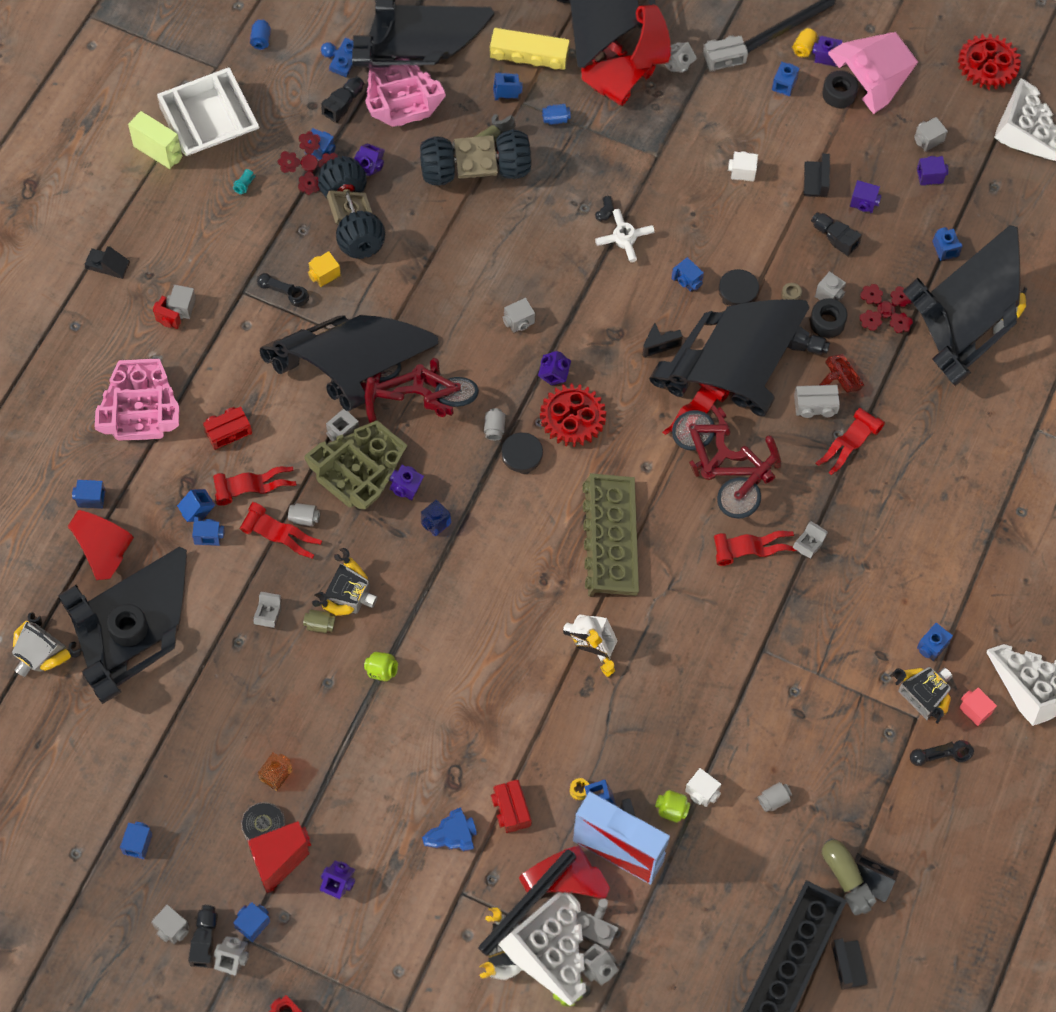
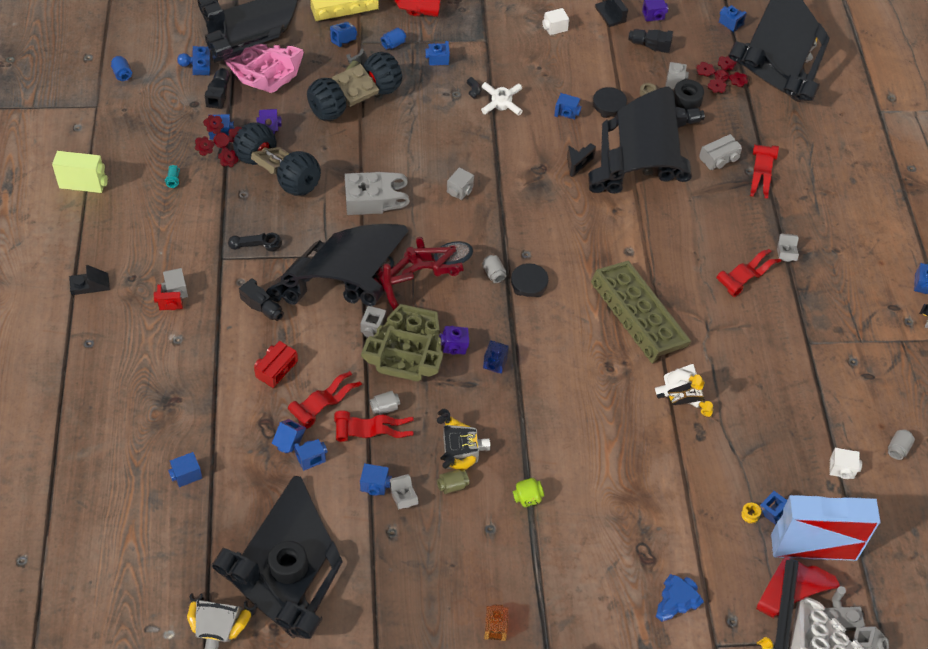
camera: 30 degrees left, 10 degrees down
(101, 542) = (222, 501): red panel -> none
(137, 402) = (187, 376): bright pink wedge -> none
(207, 111) = (113, 133): white slope -> none
(249, 354) = (259, 300): none -> black piece
(249, 585) = (375, 479): none -> blue brick
(324, 269) = (281, 212): yellow brick -> none
(425, 286) = (374, 192): none -> light grey brick
(511, 806) = (710, 552): red brick -> none
(554, 368) = (514, 208): dark purple brick -> none
(572, 415) = (560, 244): red gear -> none
(592, 152) = (438, 53): none -> blue brick
(672, 806) = (833, 487): lime head -> none
(702, 401) = (638, 190): red flag -> none
(739, 495) = (716, 238): piece -> none
(843, 372) = (722, 125): clear red plate -> none

